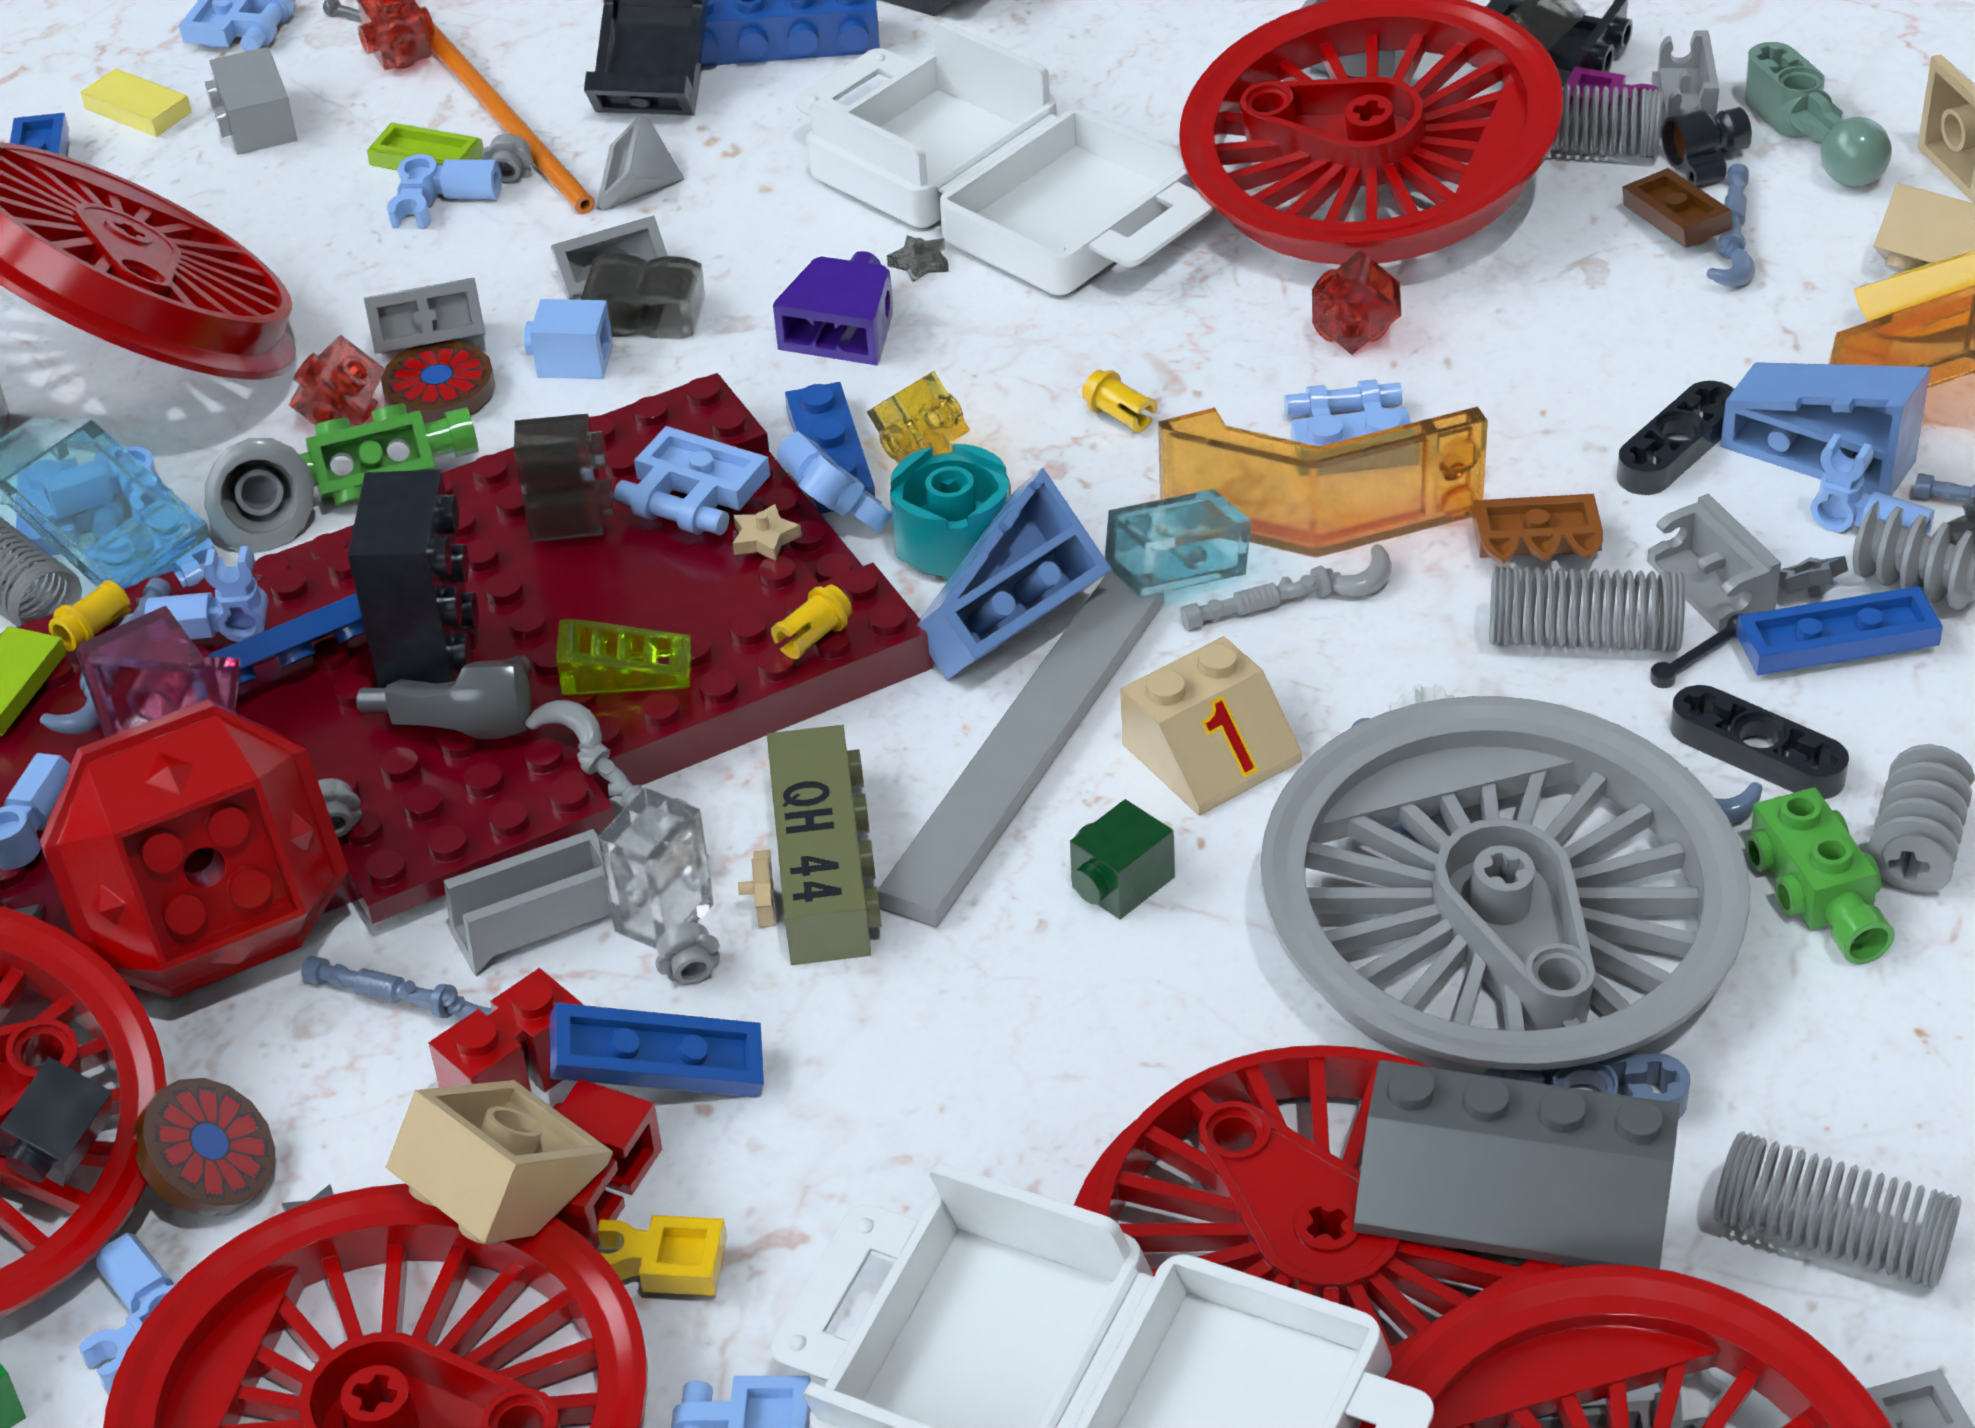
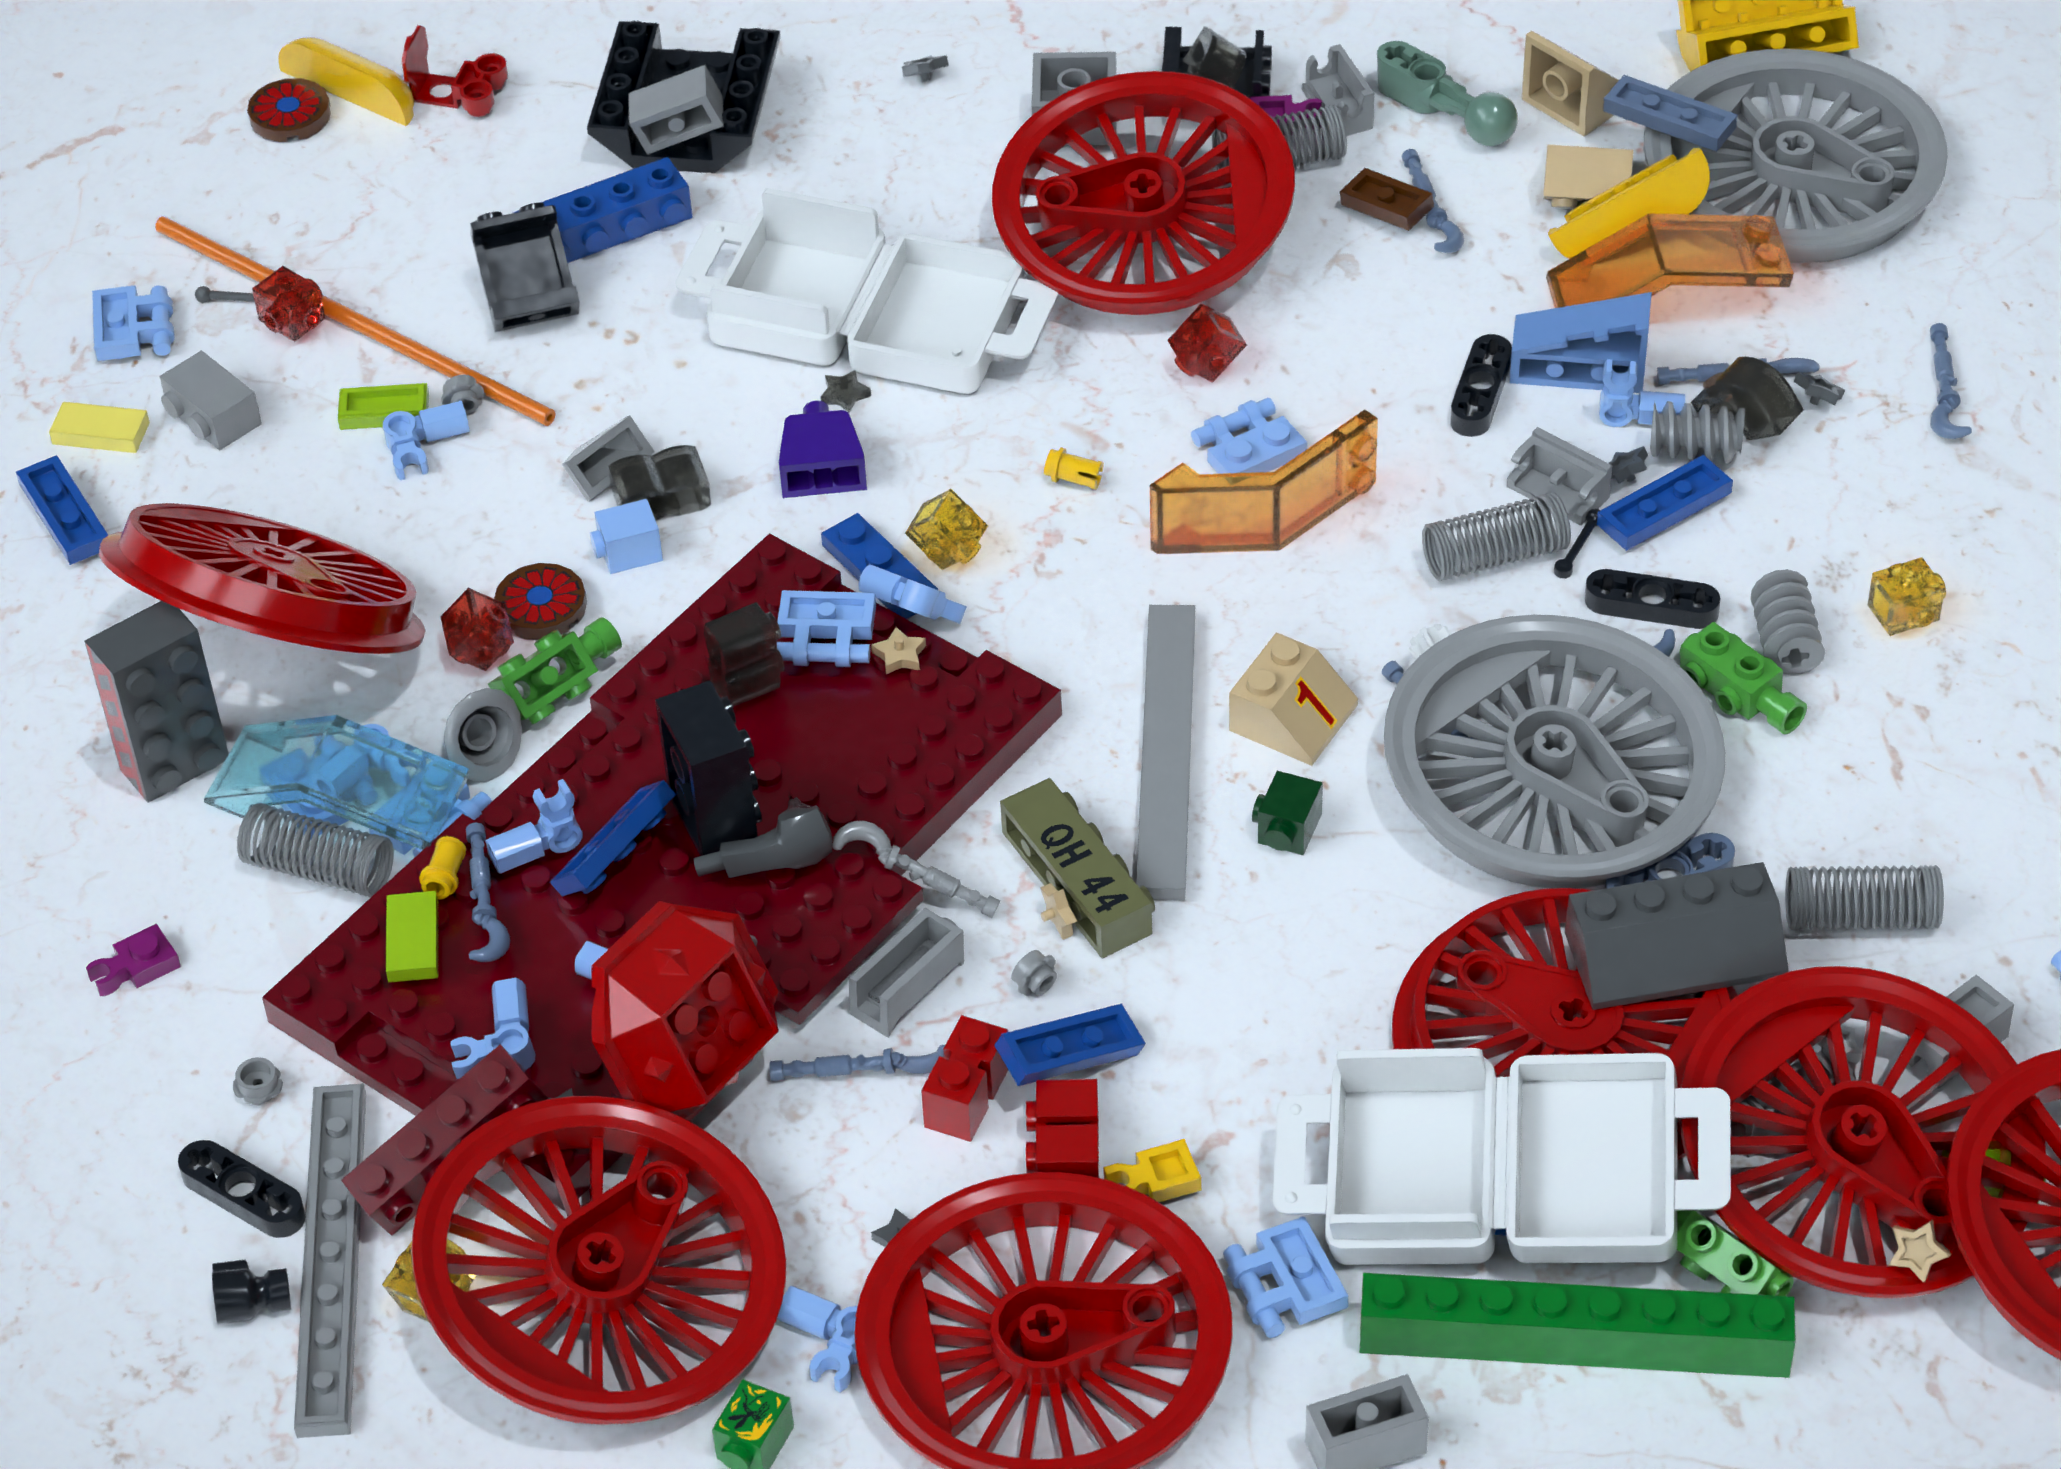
camera: 25 degrees left, 5 degrees up
(54, 1123) = (715, 1227): black brick -> none
(151, 672) = (563, 904): clear pink slope -> none
(204, 1147) = (806, 1212): tile -> none
(424, 315) = (504, 552): light grey hinge -> none
(493, 1158) = (1029, 1150): tan slope -> none
(600, 656) = (840, 776): clear neon green slope -> none
(636, 165) = (567, 371): light grey slope -> none
(655, 866) = (990, 922): clear brick -> none
(824, 611) = (989, 699): yellow pin -> none
(945, 505) = (1016, 593): teal brick -> none
(1013, 576) = (1096, 631): medium blue wedge -> none
(1177, 542) = (1191, 570): clear light blue brick -> none
(1270, 595) = (1297, 568): light grey piece -> none
(1537, 527) = (1427, 483): dark orange plate -> none
(1697, 139) = (1371, 138): black piece -> none

